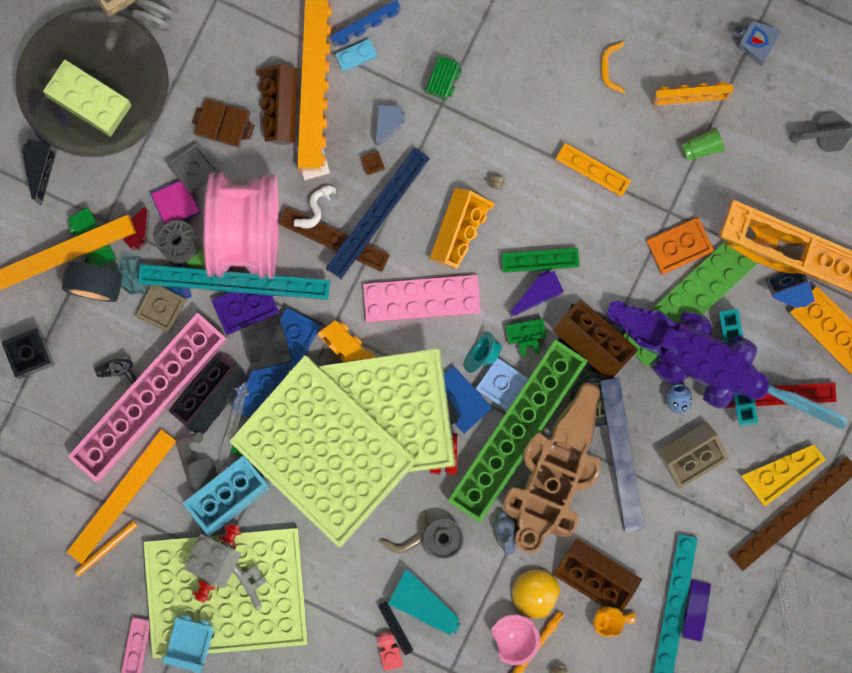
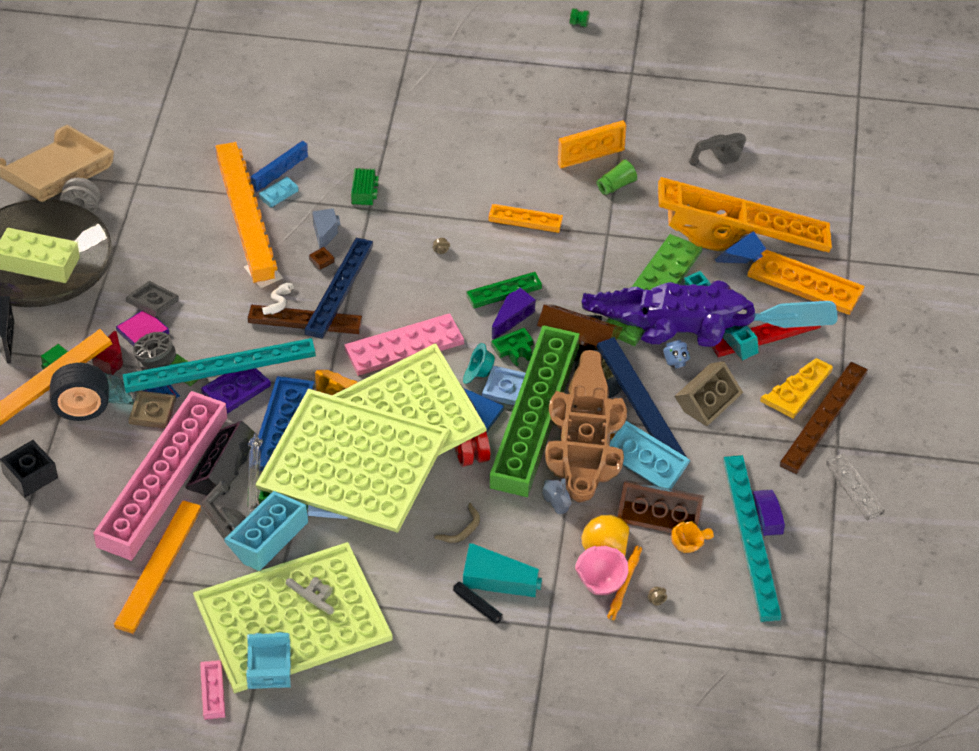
camera: 25 degrees left, 35 degrees down
(106, 548) = (154, 613): light orange bar -> none
(117, 367) = (124, 460): black piece -> none
(213, 561) = (270, 581): light grey brick -> none
(222, 123) = (175, 263): reddish brown piece -> none
(241, 225) = (215, 303): bright pink wheel -> none
(267, 347) = (269, 403): black brick -> none
(278, 102) = (218, 233): reddish brown wedge -> none
(391, 656) = (480, 628): coral plate -> none
(453, 543) = (496, 514): dark grey wheel -> none
(459, 227) = (419, 280): light orange wedge -> none
(605, 67) = (503, 144): light orange animal -> none
(606, 517) = (649, 456): none -> medium azure plate
(680, 246) = (626, 253): orange tile -> none
(756, 40) = (630, 103): sand blue torso -> none

